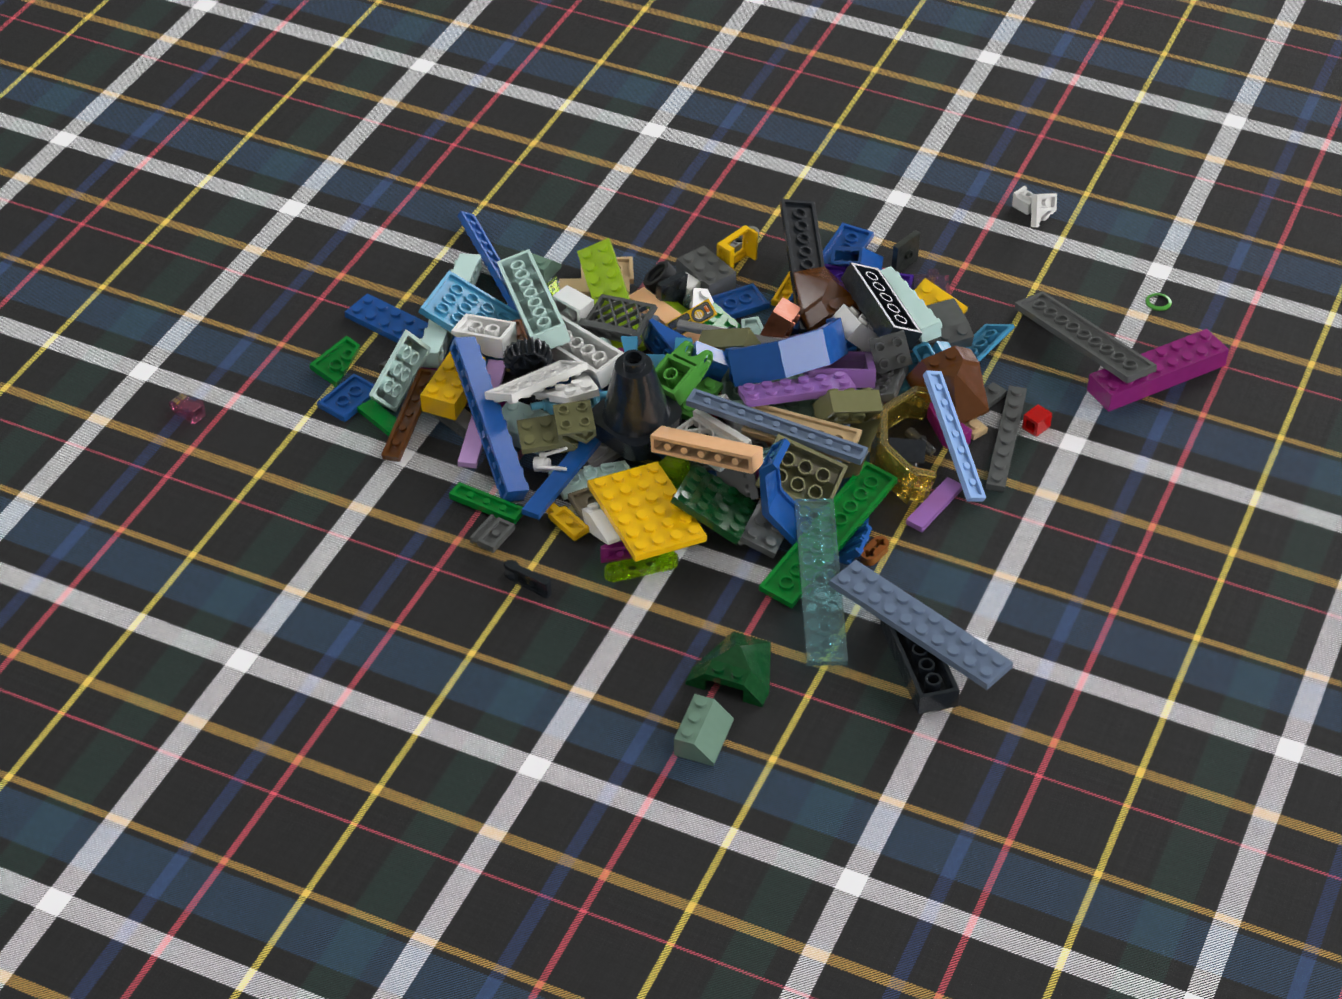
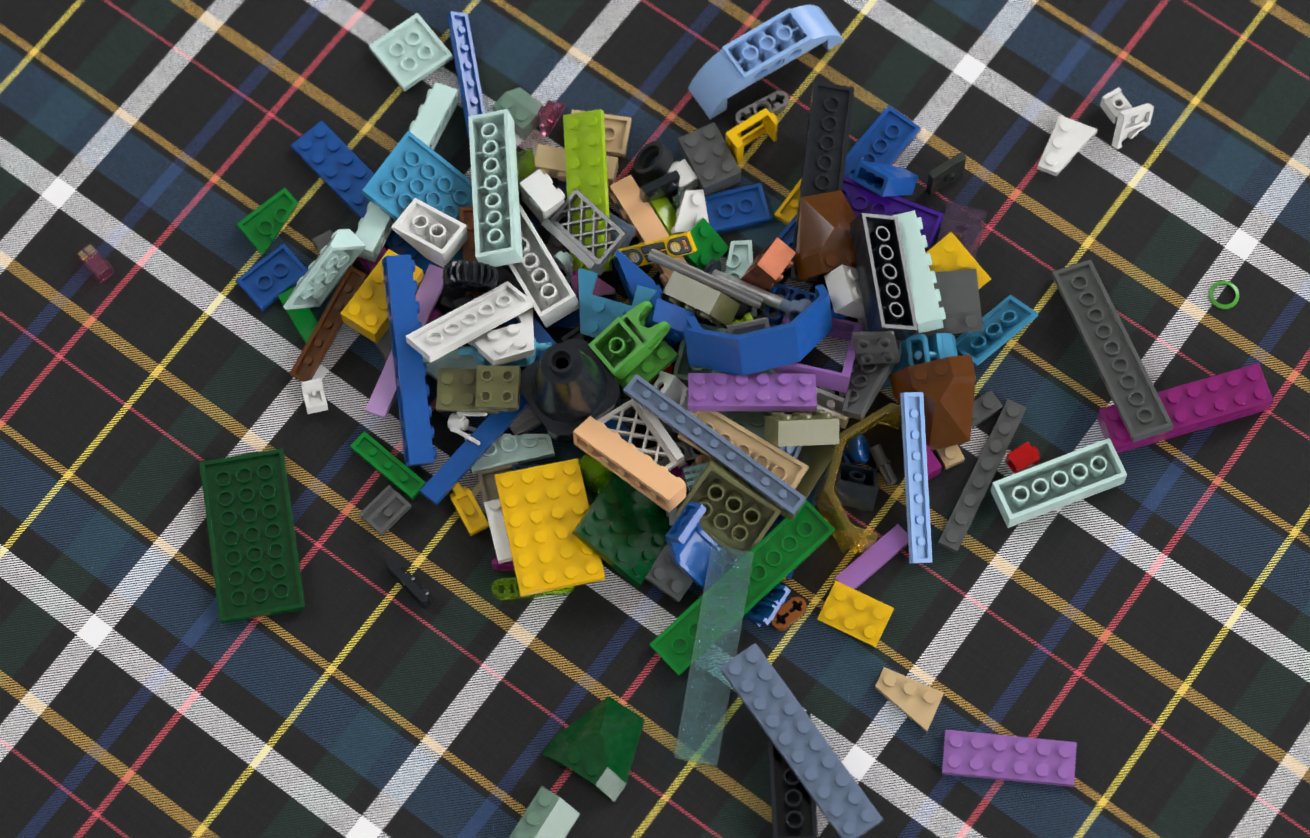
camera: 15 degrees right, 25 degrees up
(375, 568) = (252, 536): none -> dark green plate
(406, 465) = (314, 396): none -> white bracket
(432, 243) = (411, 52): none -> light aqua plate
(563, 261) = (549, 116): none -> clear pink wing
(724, 198) = (760, 54): none -> light blue slope
(894, 430) = (857, 449): none -> blue brick
(933, 540) = (855, 614): none -> yellow plate
(993, 229) = (1063, 144): none -> white wing
(1005, 590) = (912, 697): none -> tan wing
(1073, 428) = (1058, 482): none -> light aqua brick
(1103, 619) = (1009, 758): none -> medium lavender plate

